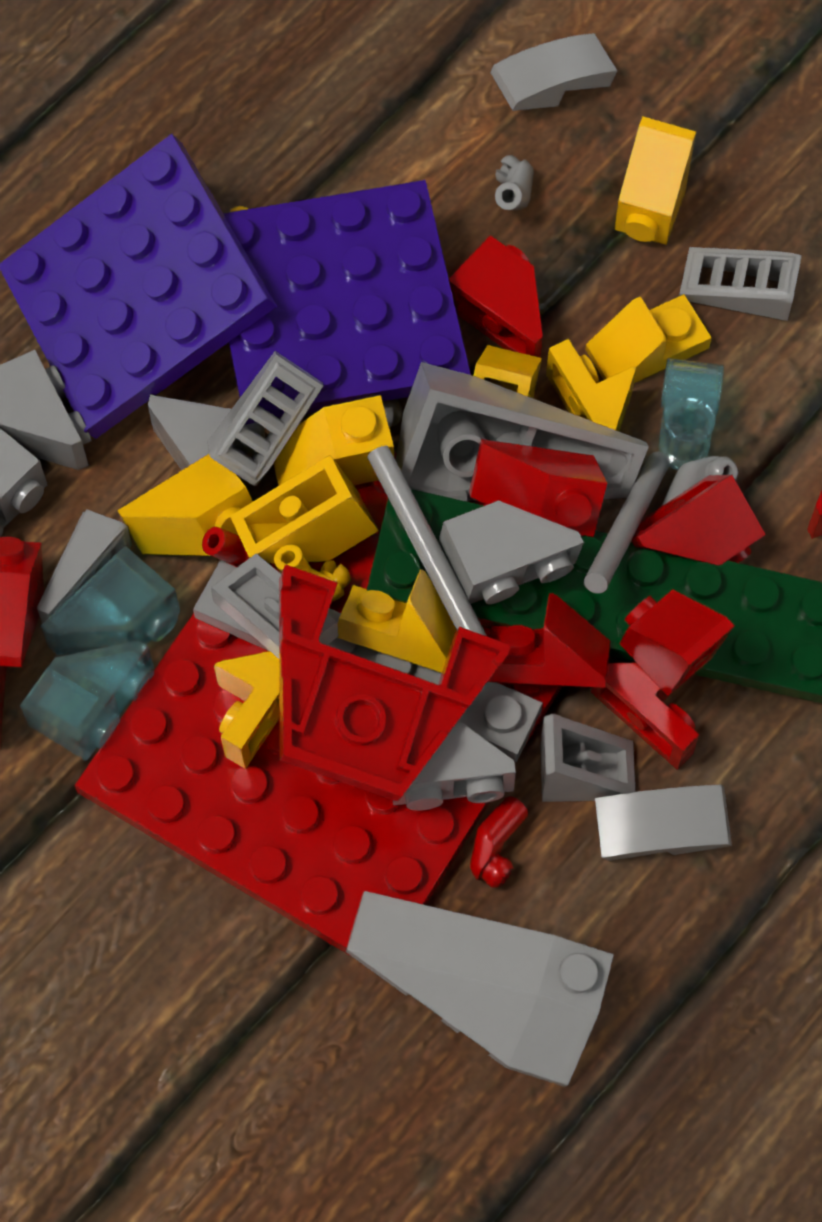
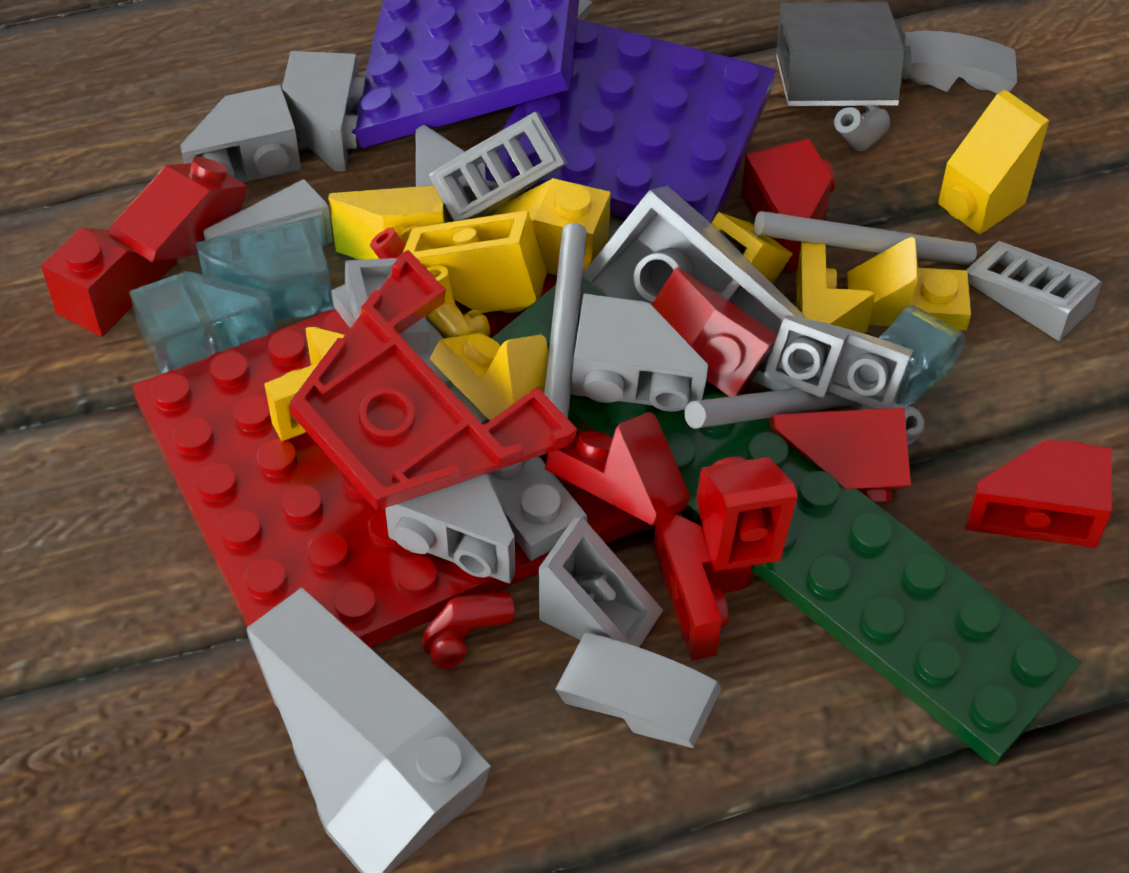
camera: 30 degrees right, 15 degrees down
(456, 122) = (841, 54): none -> dark grey piece
(591, 313) = (861, 237): none -> light grey bar
(654, 454) = (837, 361): none -> light grey slope

